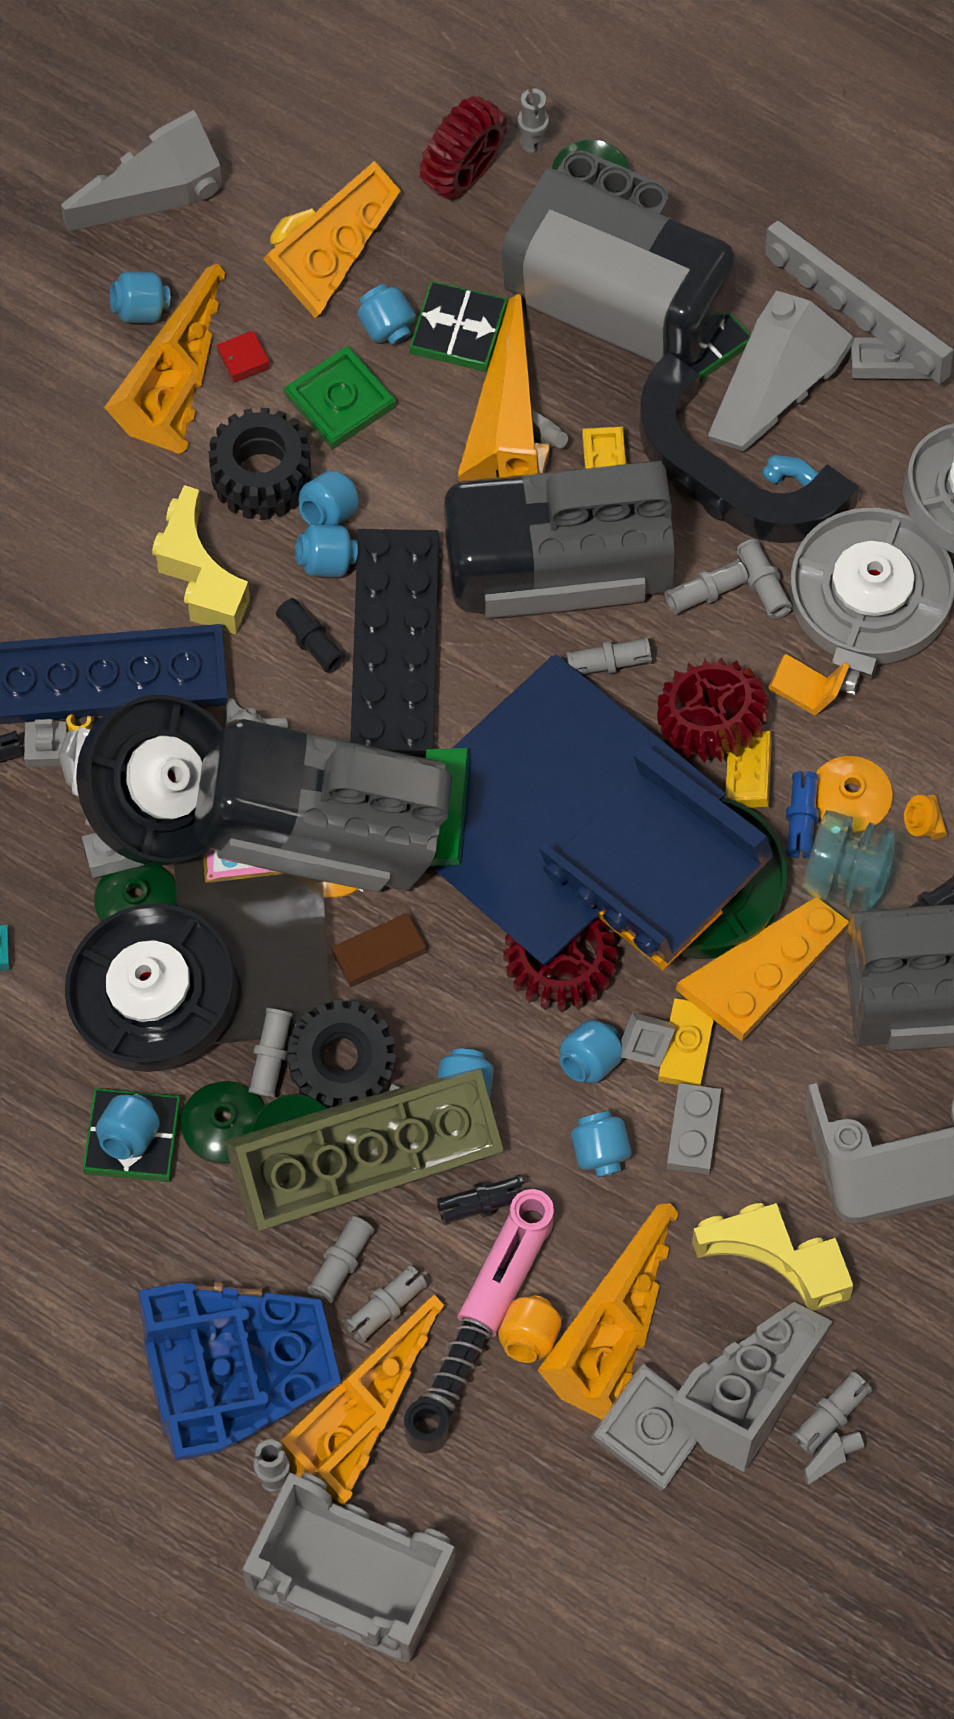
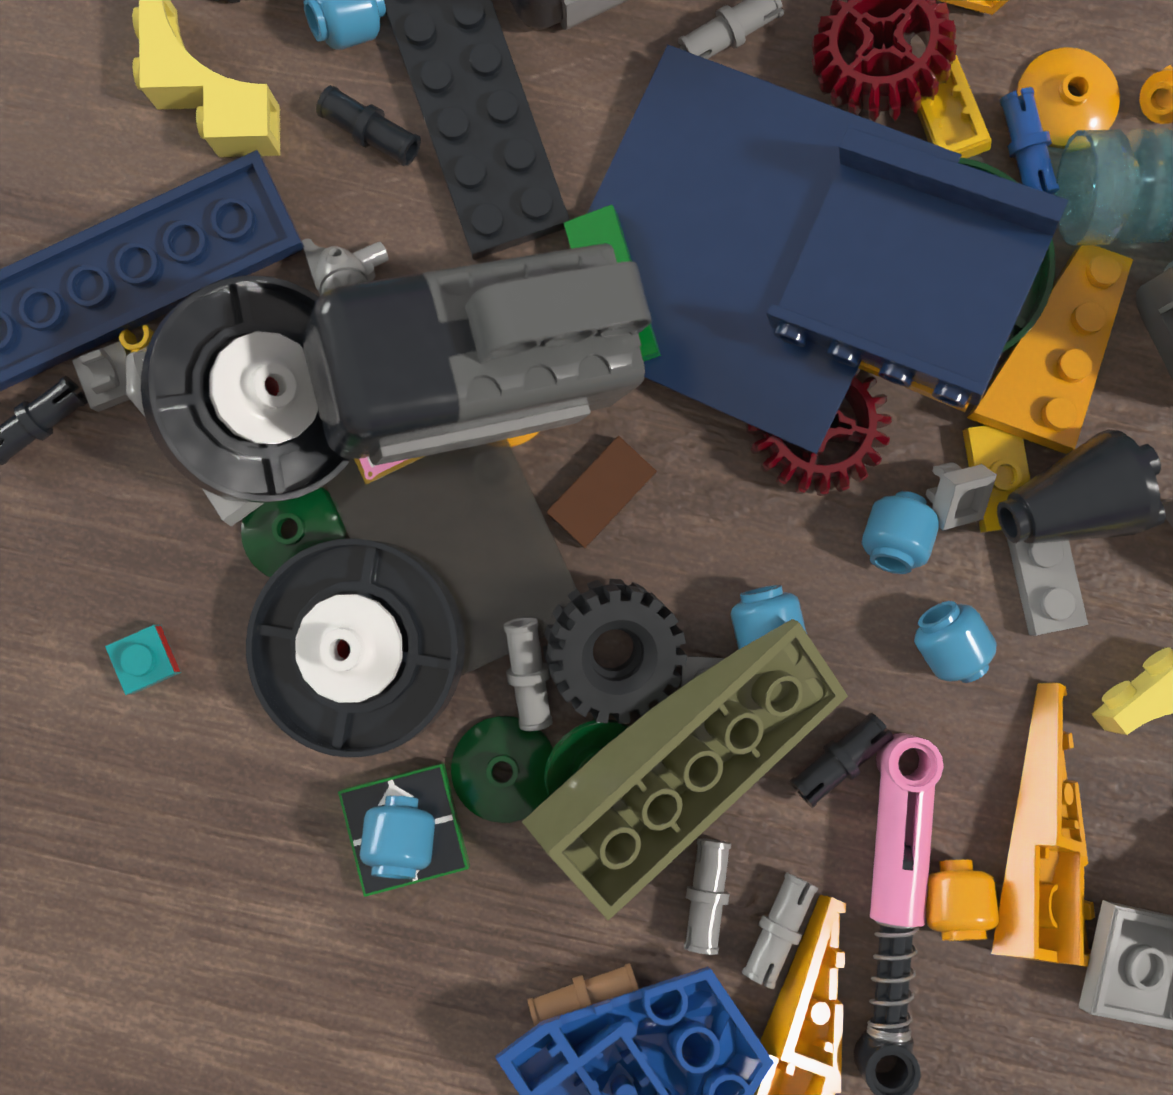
camera: 20 degrees left, 20 degrees up
(731, 1065) = (1088, 494): none -> black cone

